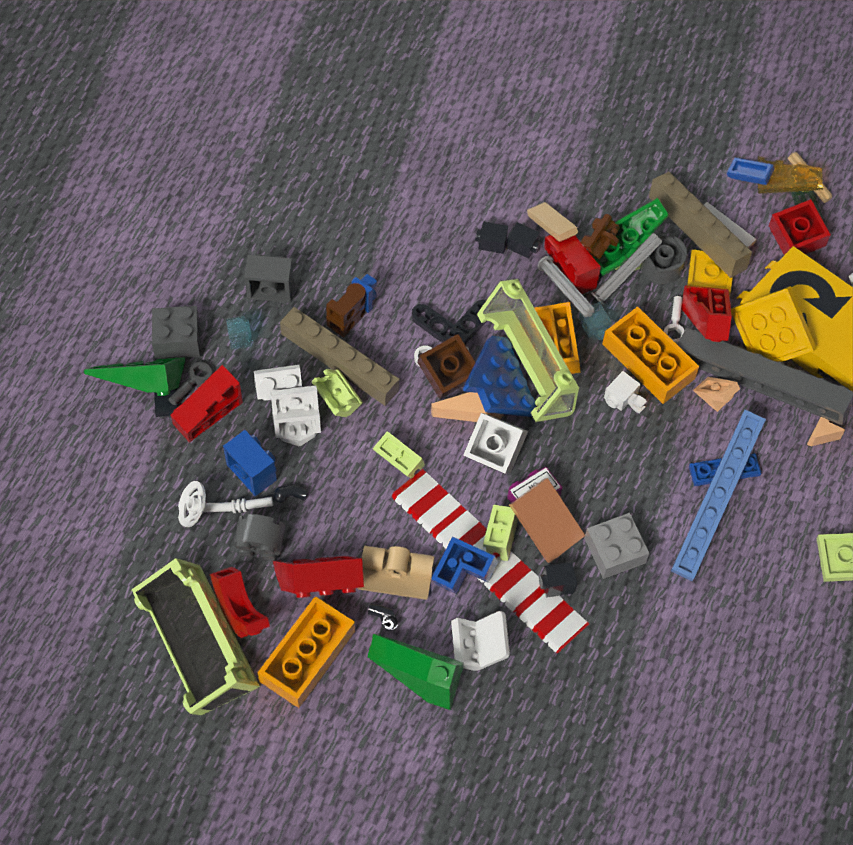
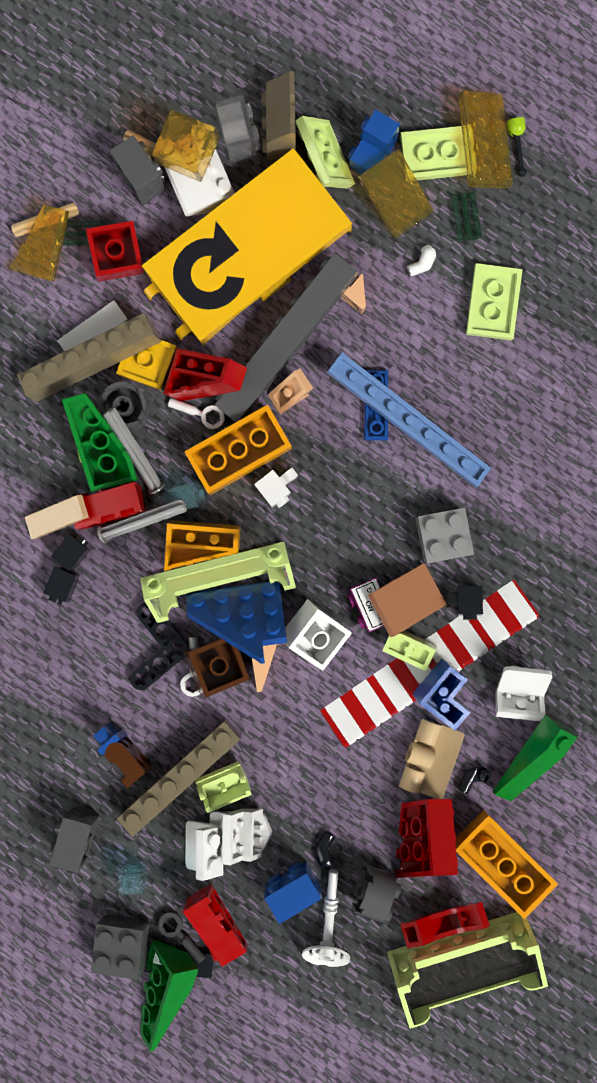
camera: 75 degrees left, 25 degrees up
(399, 455) = (306, 734): yellowish green hinge -> none
(603, 236) = (97, 471): reddish brown hips -> none
(750, 171) = (27, 282): blue tile -> none
(774, 326) = (241, 315): yellow plate -> none

